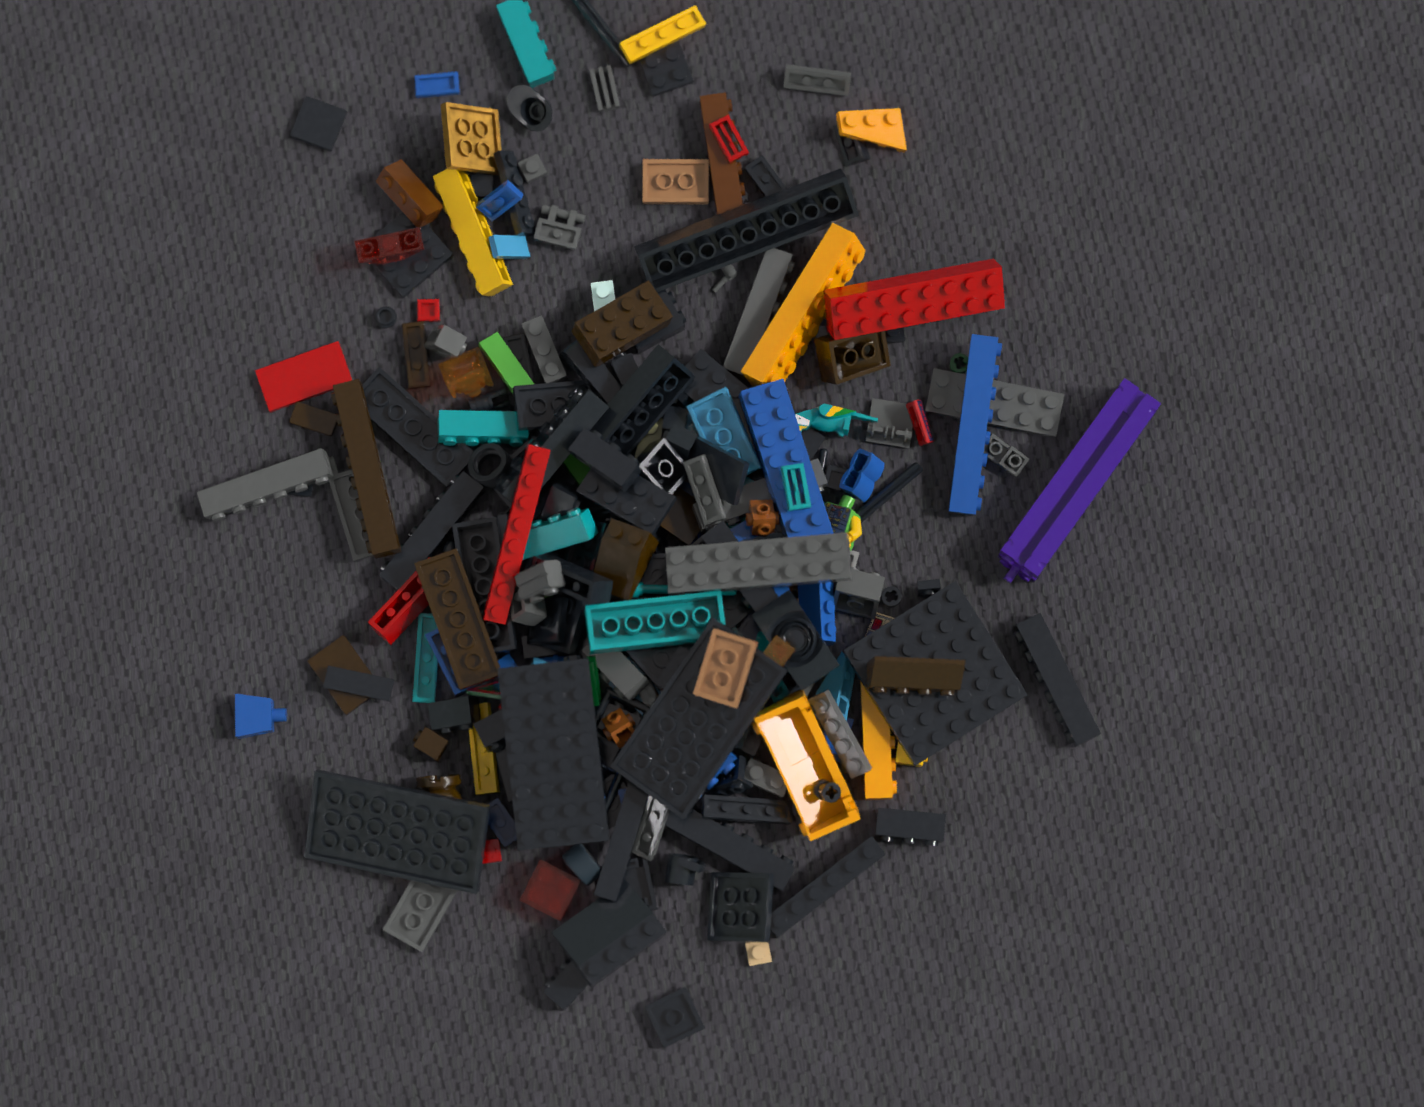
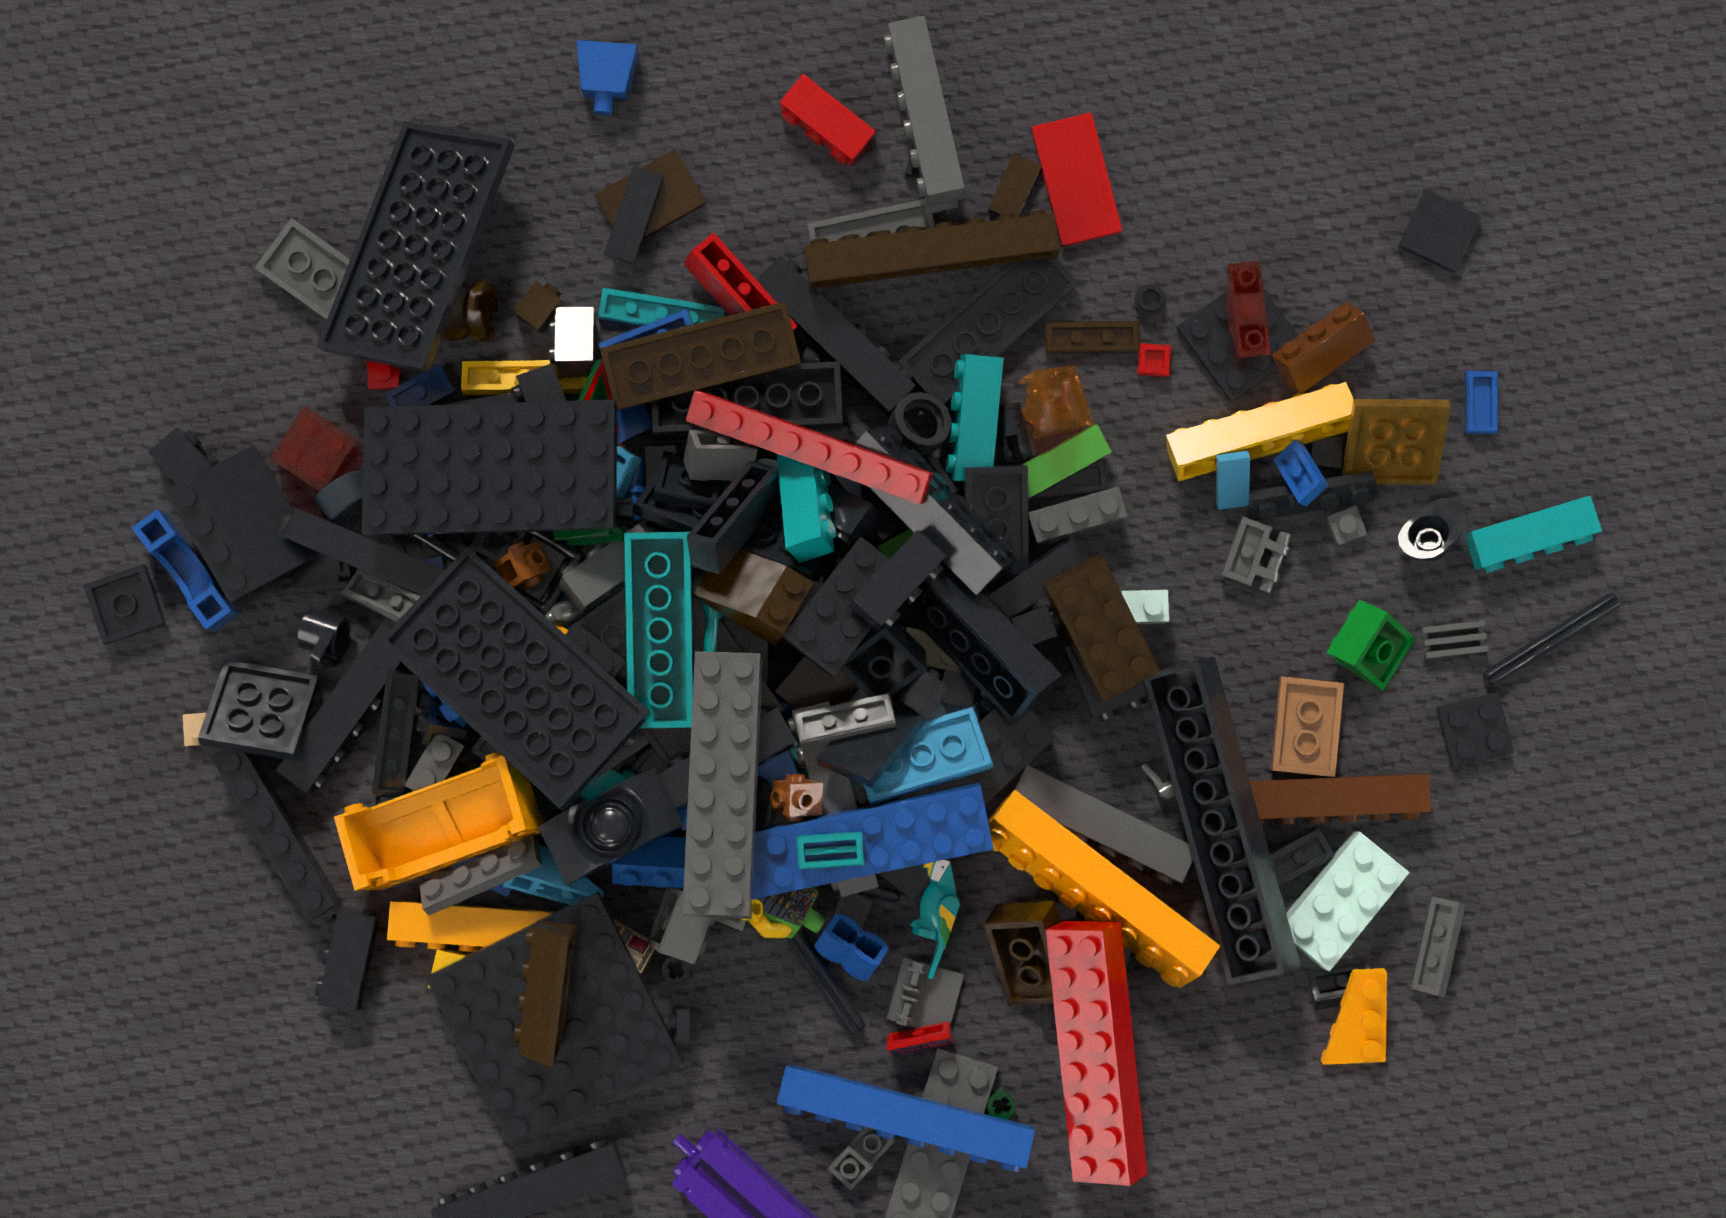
camera: 85 degrees right, 5 degrees up
(278, 554) = (826, 121): none -> red brick
(446, 342) = (1102, 378): dark grey brick -> none
(540, 581) = (735, 472): dark grey brick -> none
(614, 143) = (1371, 644): none -> green slope
(646, 973) = (179, 558): none -> blue arch
(662, 34) = (1526, 729): yellow plate -> none
(725, 668) = (573, 721): medium nougat plate -> none
(737, 155) = (1335, 819): red tile -> none
(779, 651) = (592, 800): clear orange plate -> none
(791, 145) = (1343, 899): none -> light aqua brick
(823, 786) = (404, 848): black bush -> none

